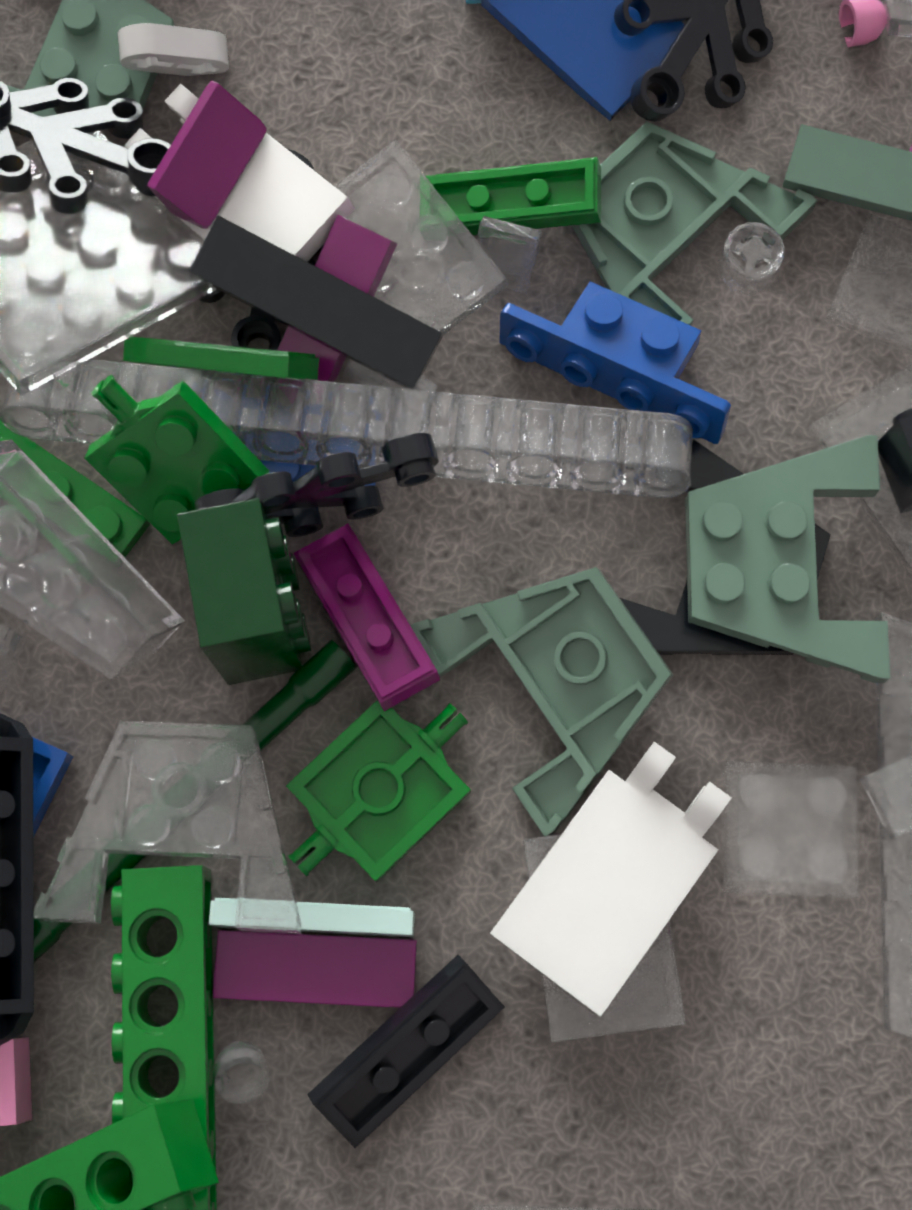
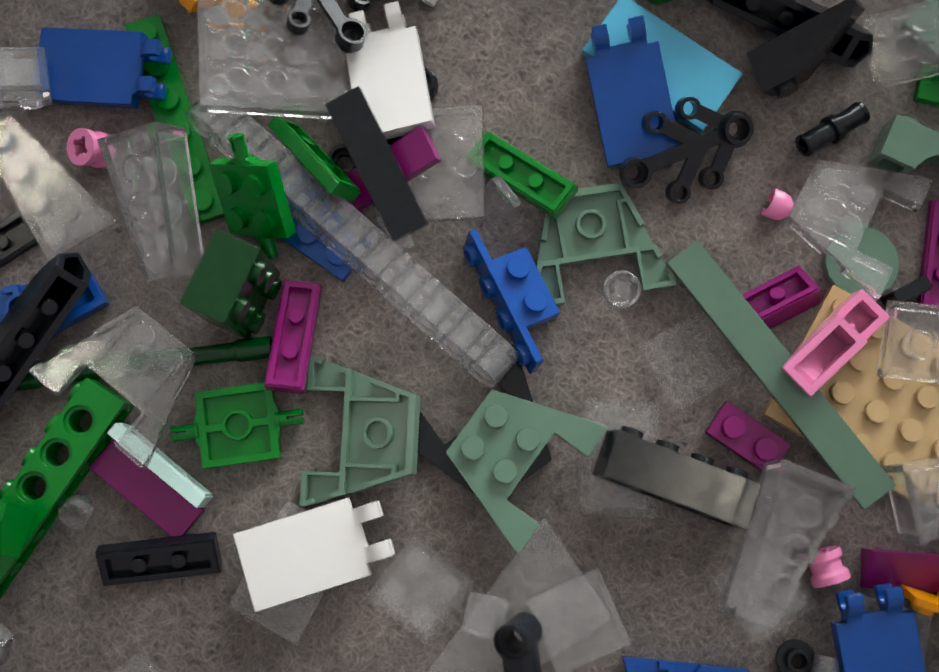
camera: 30 degrees right, 5 degrees up
(207, 156) = (379, 50): magenta slope -> none
(333, 484) = (300, 262): black plant -> none

